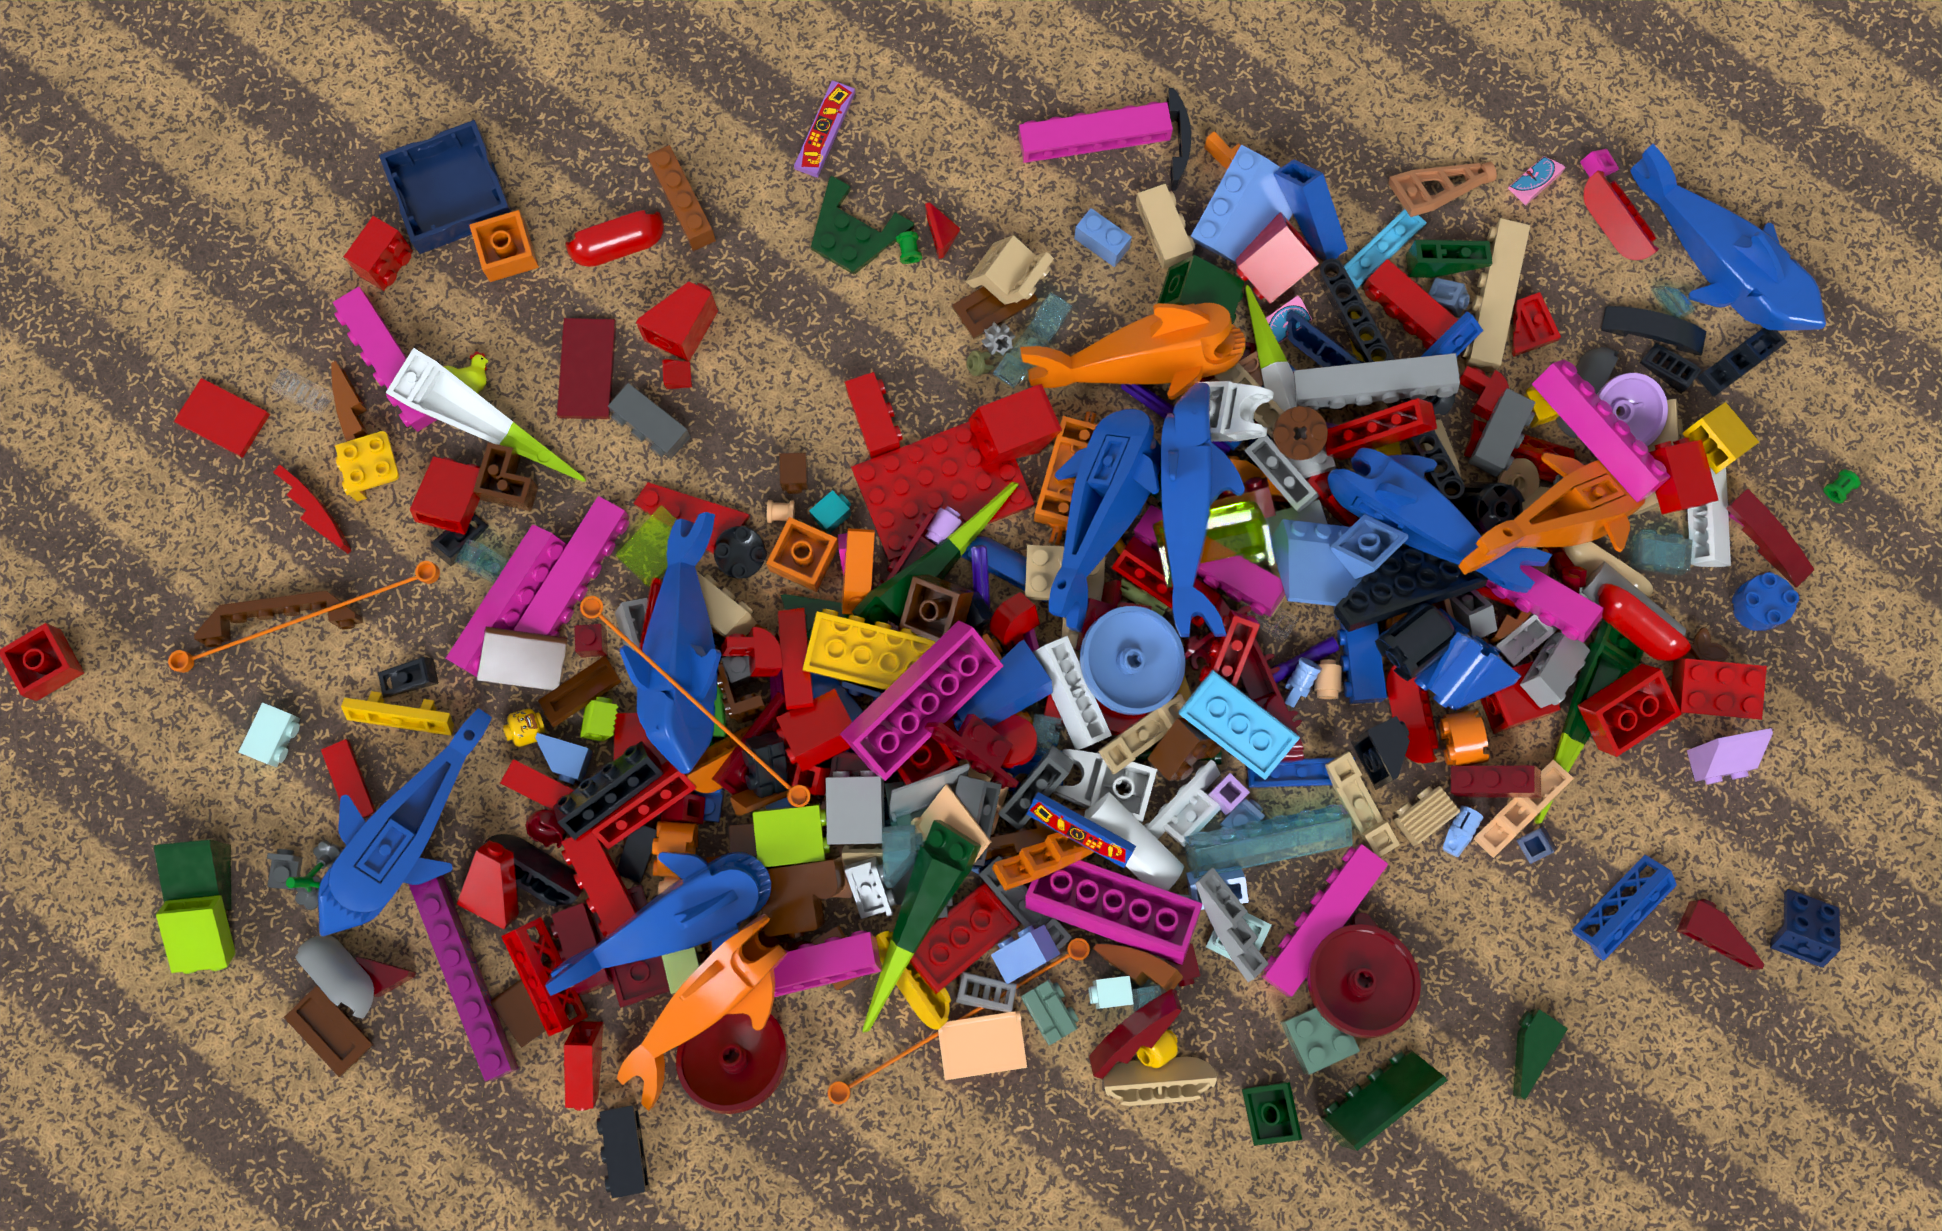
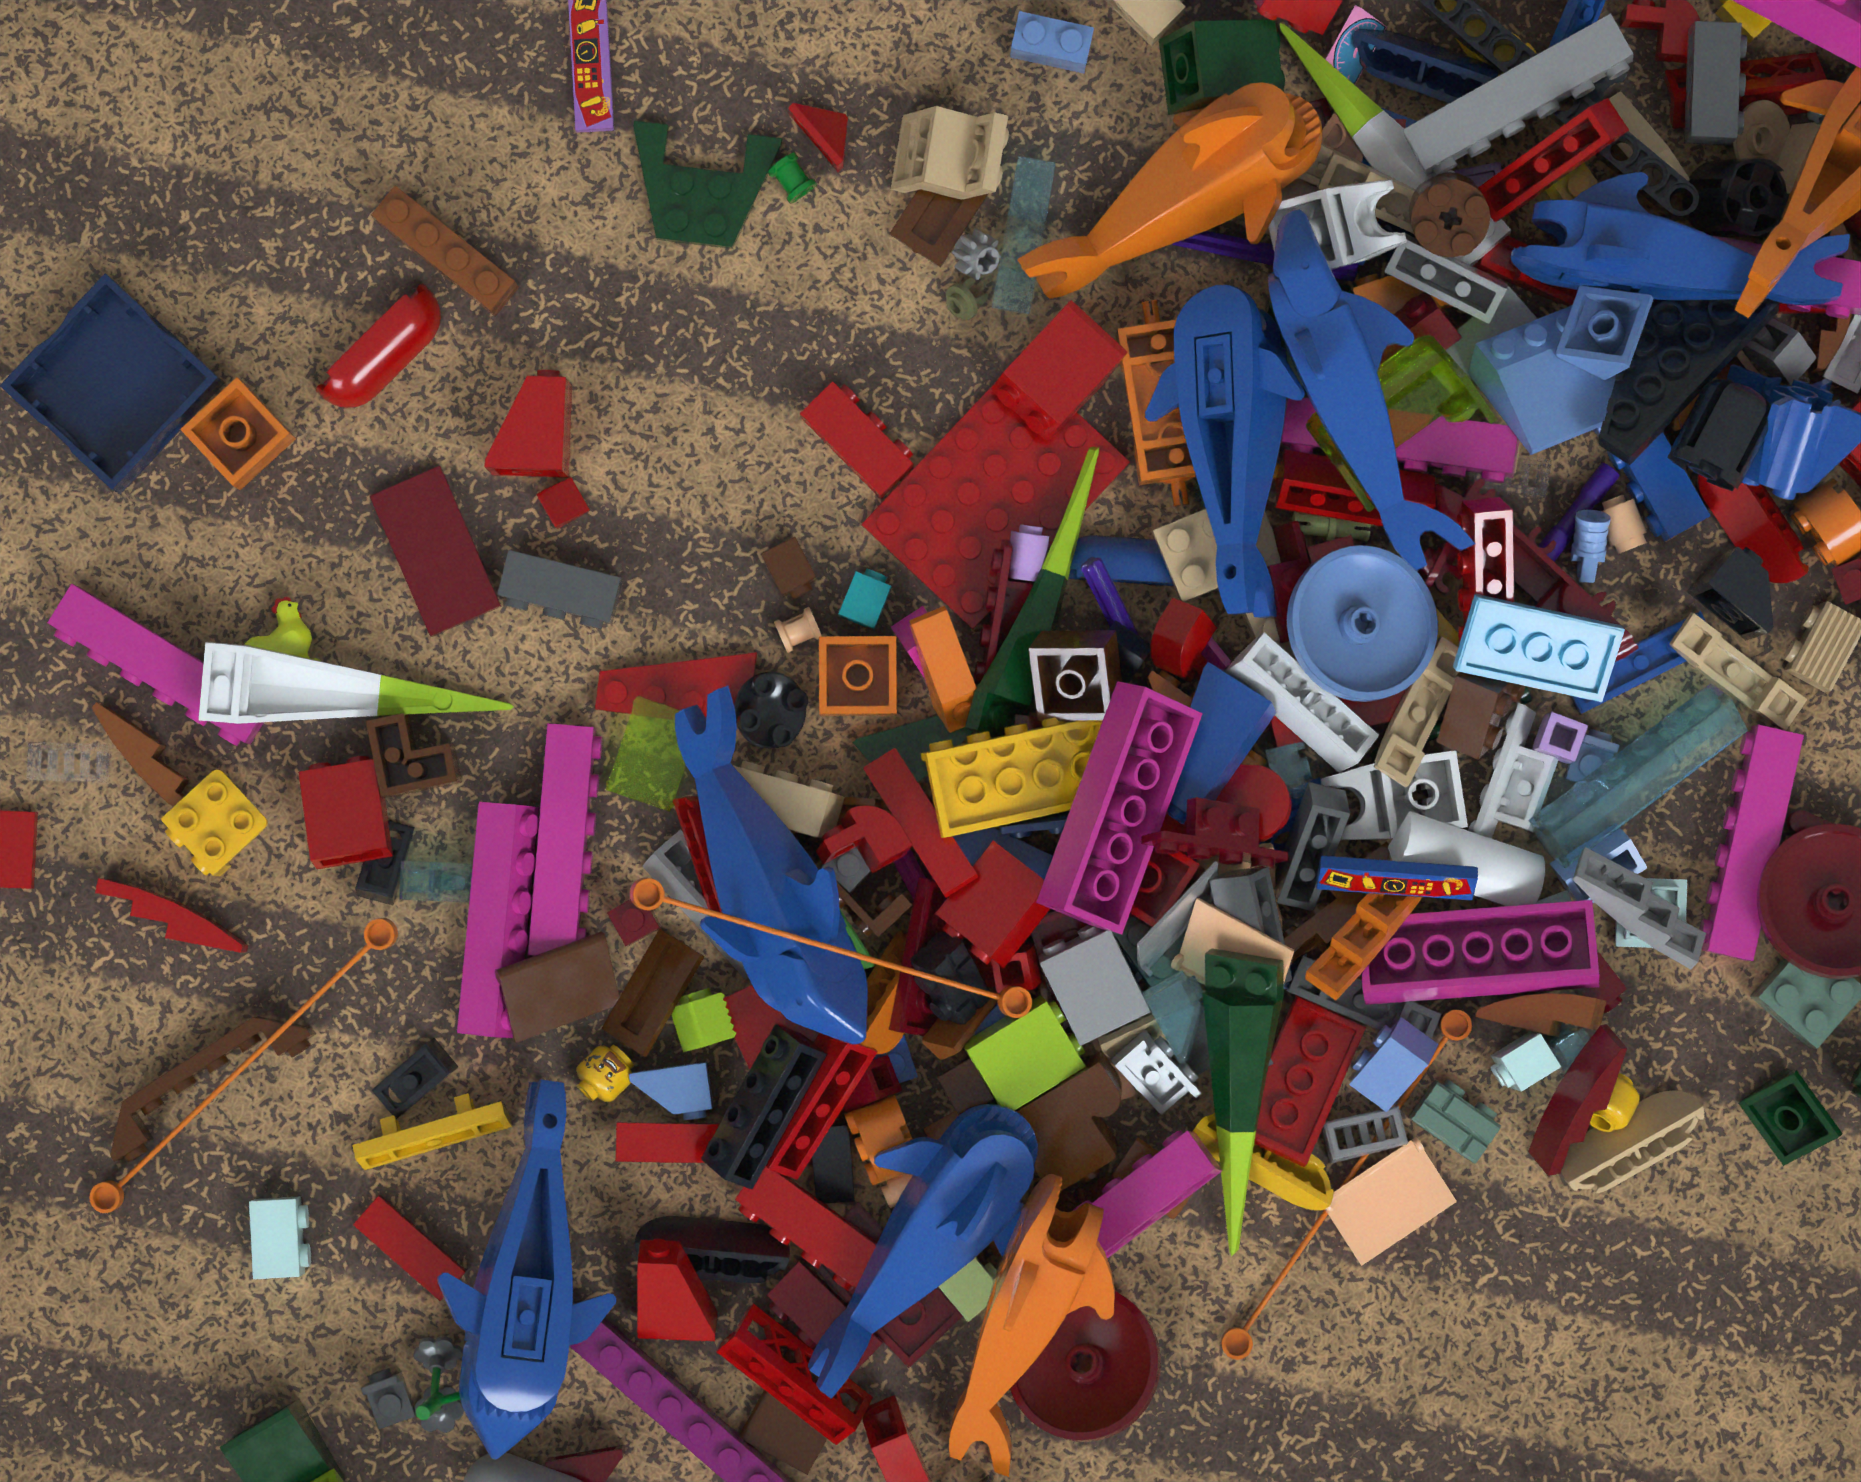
camera: 25 degrees left, 10 degrees up
(378, 253) = (75, 525): red brick -> none
(544, 828) = (701, 1188): dark red hair -> none

